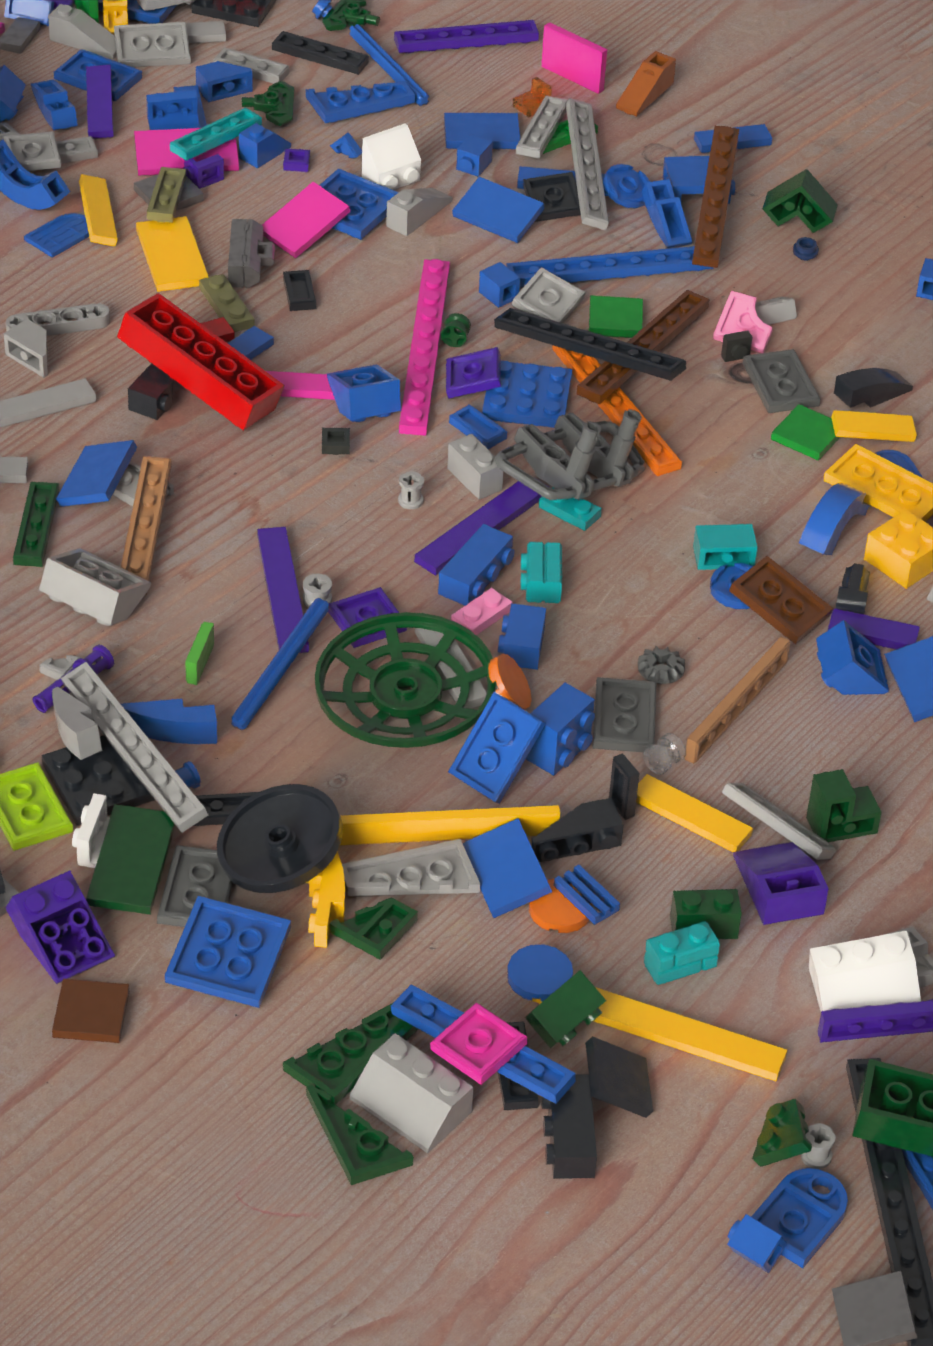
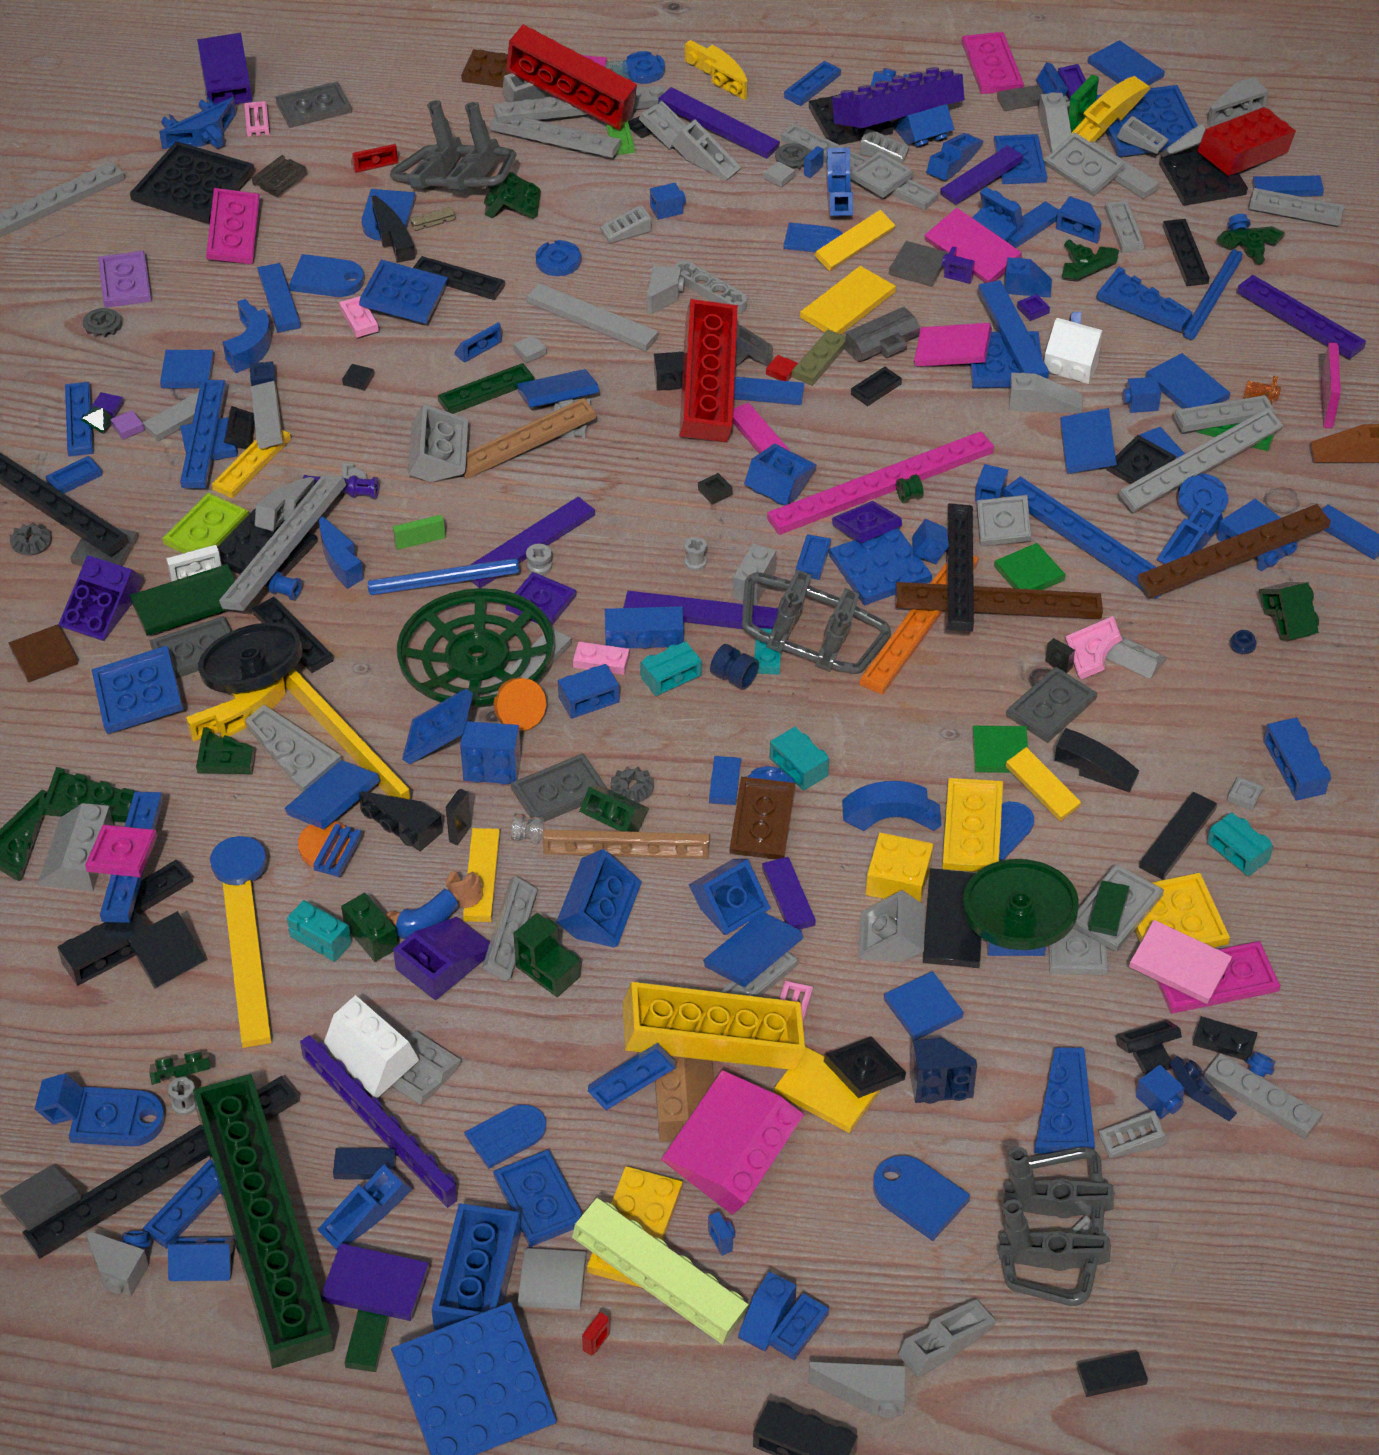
camera: 60 degrees right, 5 degrees up
(166, 194) = (900, 261): olive plate -> none
(214, 134) = (994, 246): teal tile -> none
(326, 177) = (1012, 328): none -> blue tile
(538, 347) = (930, 541): none -> blue brick
(565, 1009) = (204, 888): dark green brick -> none
(586, 531) = (734, 666): none -> dark blue wheel
(695, 684) = (613, 809): none -> dark green brick
(706, 606) = (725, 780): none -> blue tile
(727, 867) = (440, 908): none -> piece
(787, 746) = (599, 900): none -> blue slope
(853, 592) = (811, 862): black piece -> none

